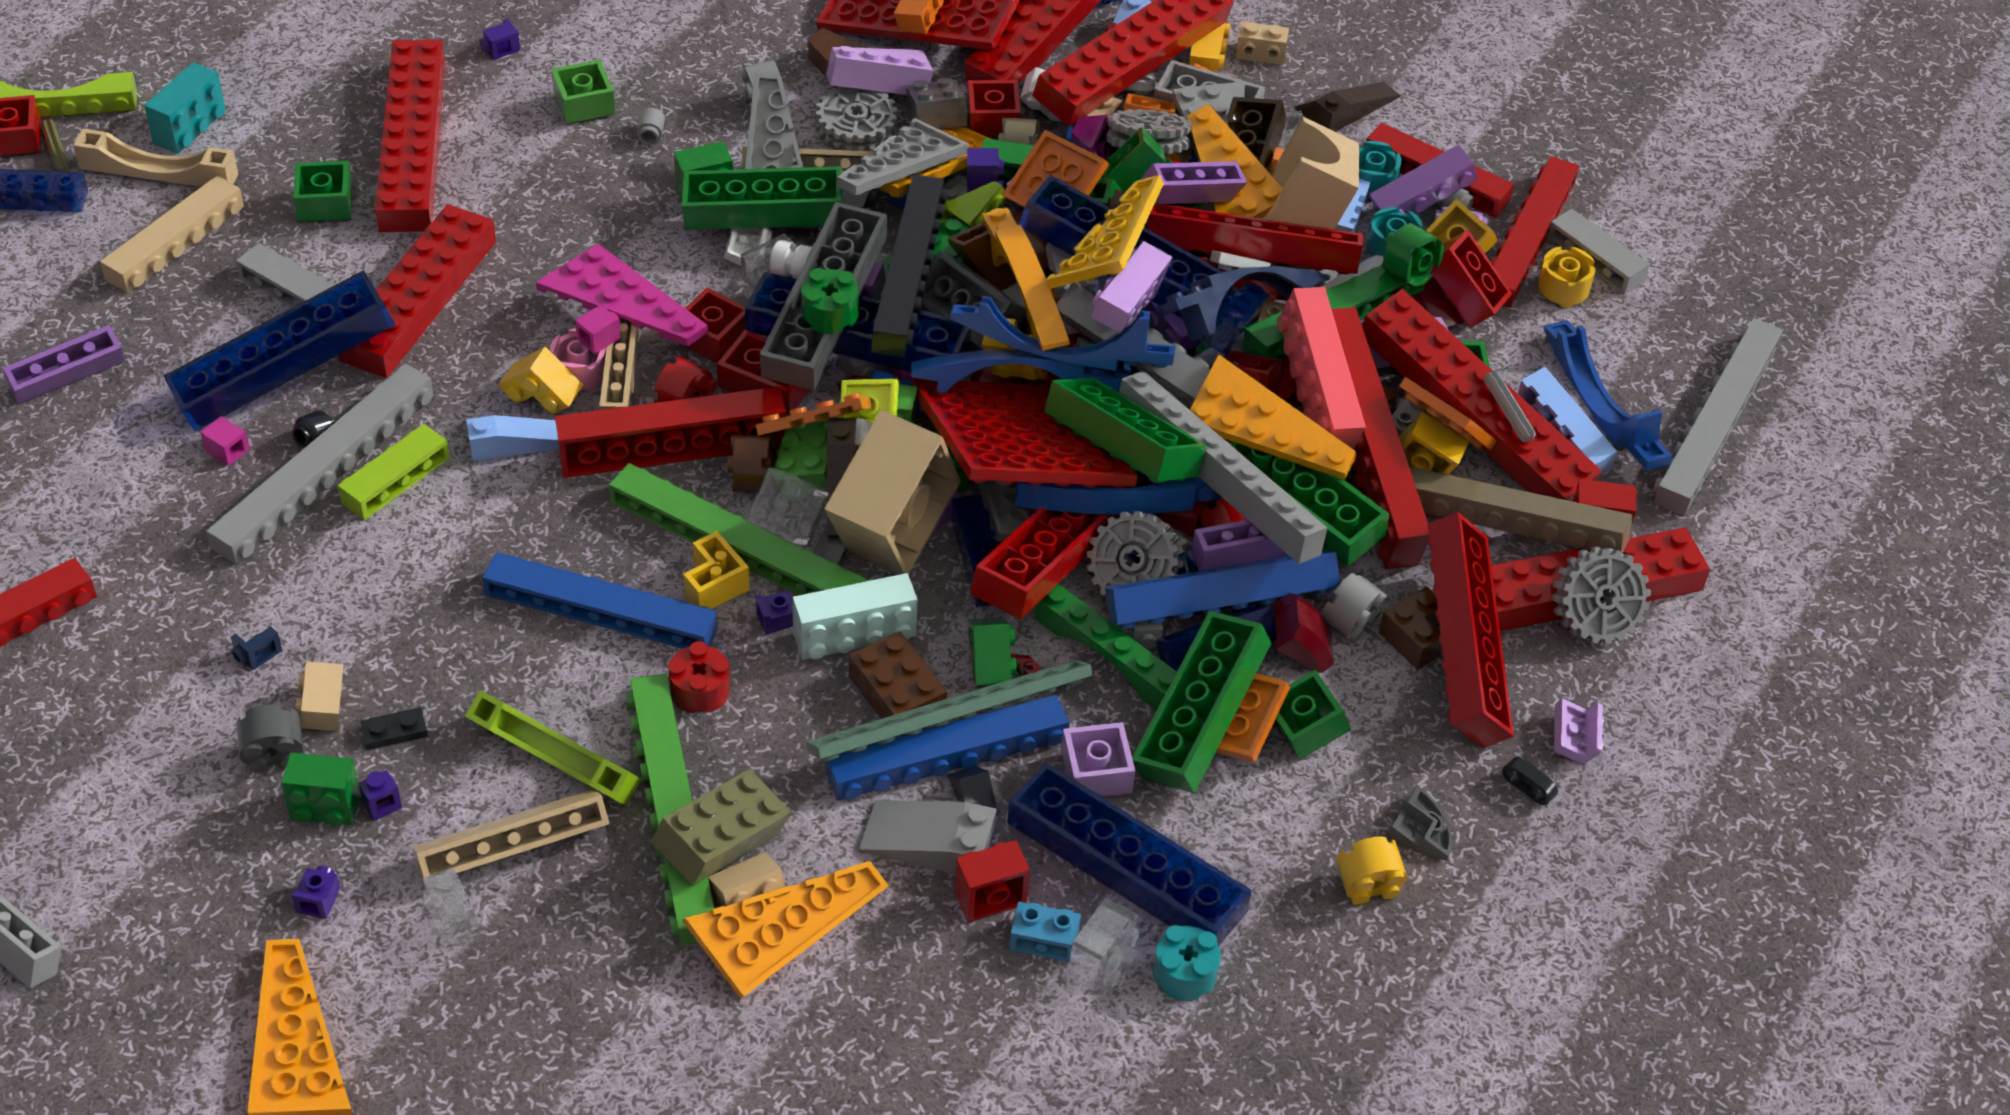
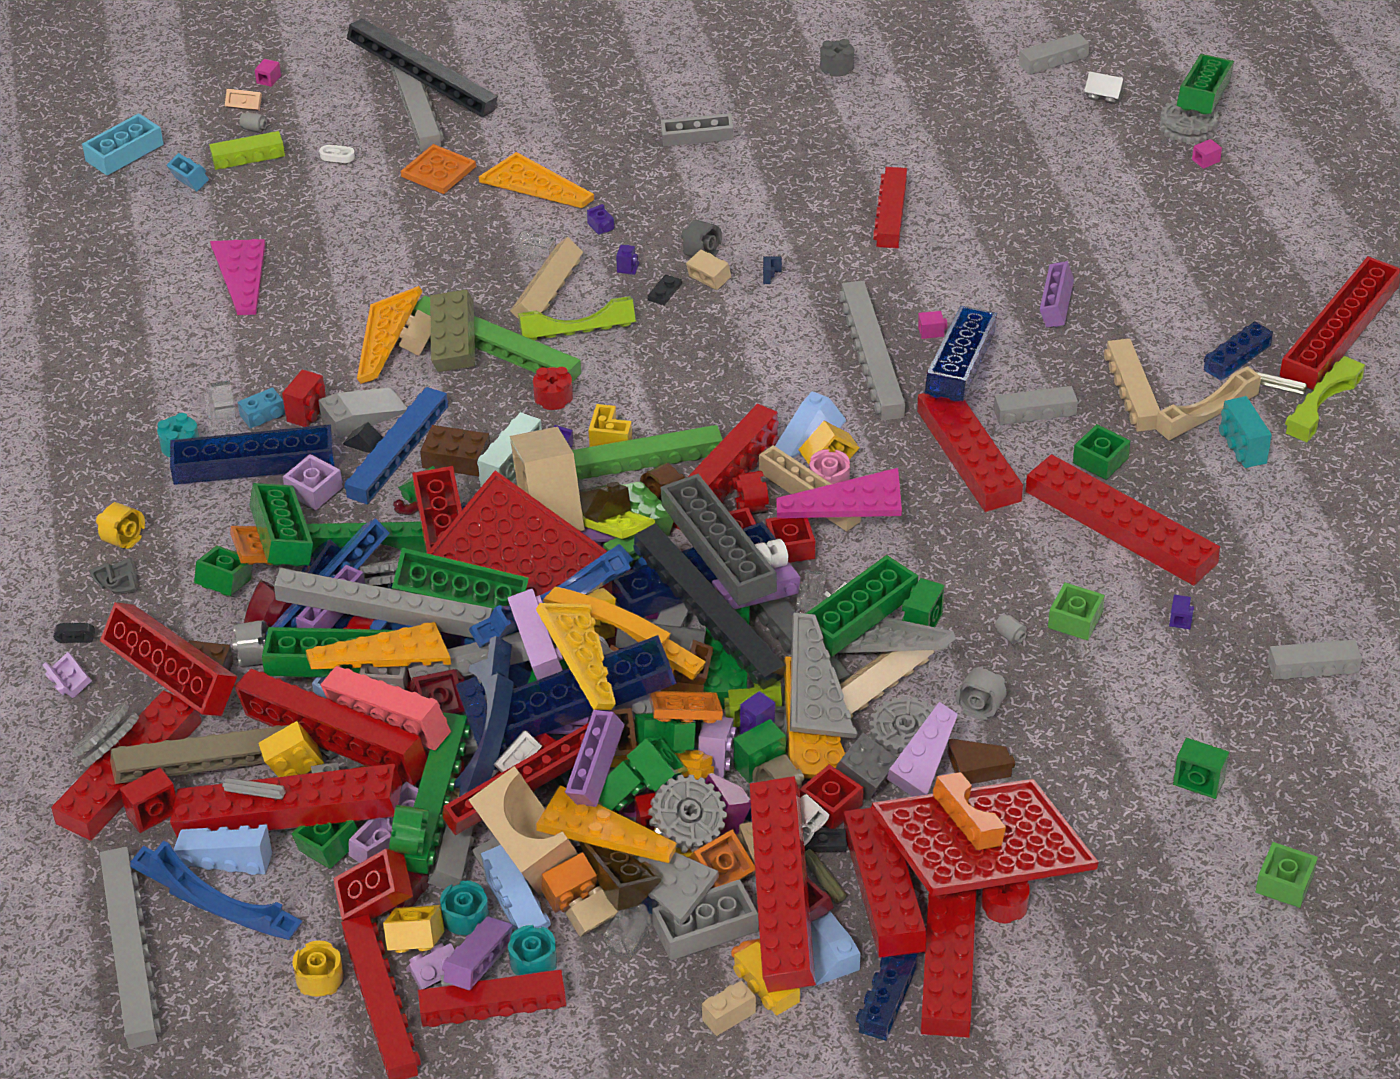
camera: 140 degrees right, 5 degrees down
(311, 426) = (900, 356): black head -> none
(321, 789) = (650, 237): green brick -> none
(393, 471) = (833, 368): lime brick -> none
(598, 329) = (826, 466): dark pink brick -> none
(598, 602) = (649, 385): blue brick -> none
(789, 506) = (609, 470): clear brick -> none
(801, 416) = (636, 494): orange wing -> none
(829, 300) = (691, 506): green brick -> none
(940, 712) = (408, 446): sand green plate -> none
(1347, 105) = (620, 1003): dark brown wedge -> none
(1446, 415) = (286, 746): orange plate -> none
(1611, 259) = (316, 1016): light grey brick -> none

